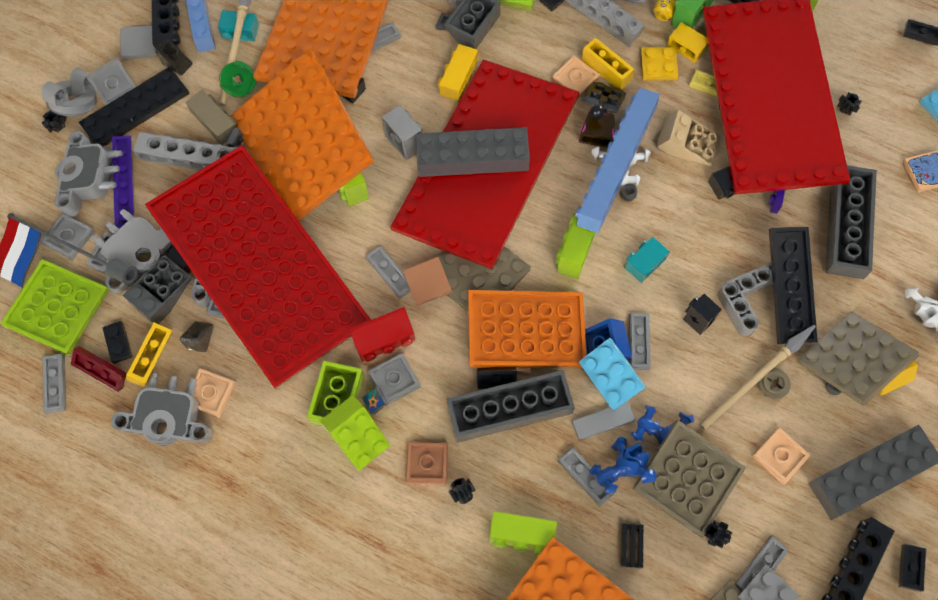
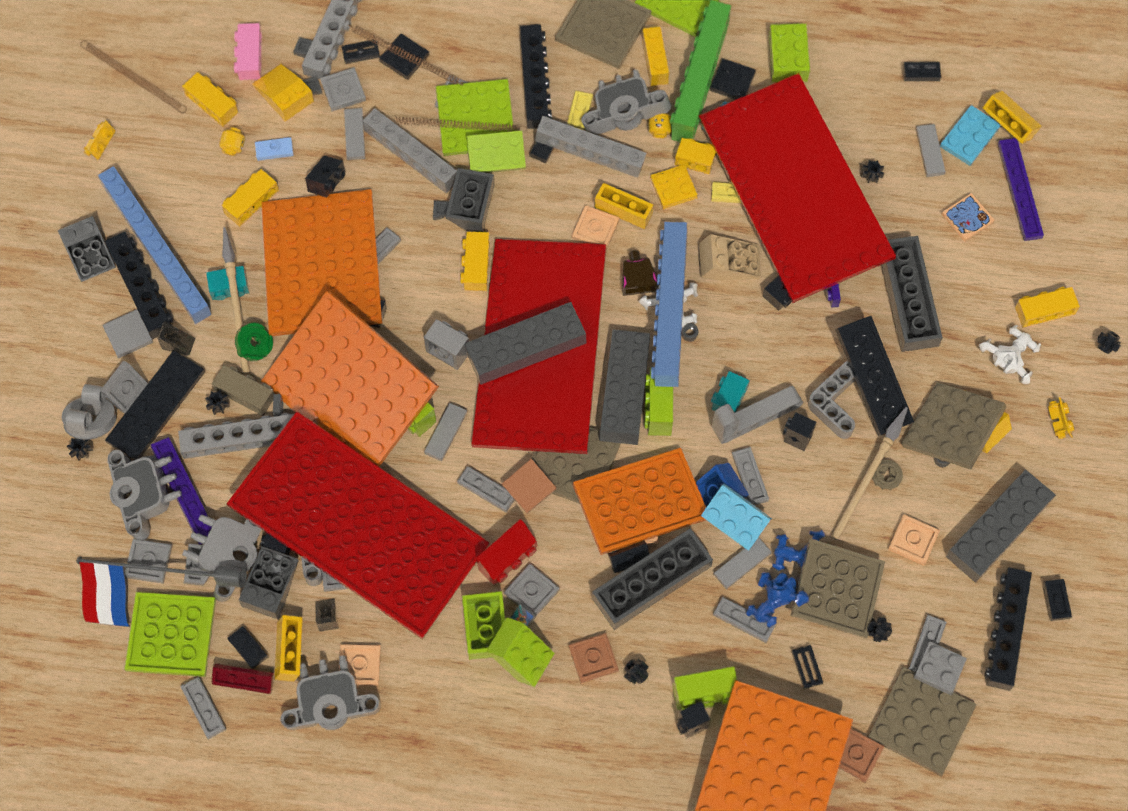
camera: 20 degrees left, 0 degrees up
(185, 120) = (219, 406): none -> black gear
(373, 209) = (445, 432): none -> light grey tile
(498, 560) = (693, 720): none -> black brick
(549, 221) = (624, 387): none -> dark grey brick
(603, 98) = (633, 243): black plate -> none
(637, 288) = (732, 425): none -> light grey beam
(909, 102) = (930, 150): none -> light grey tile

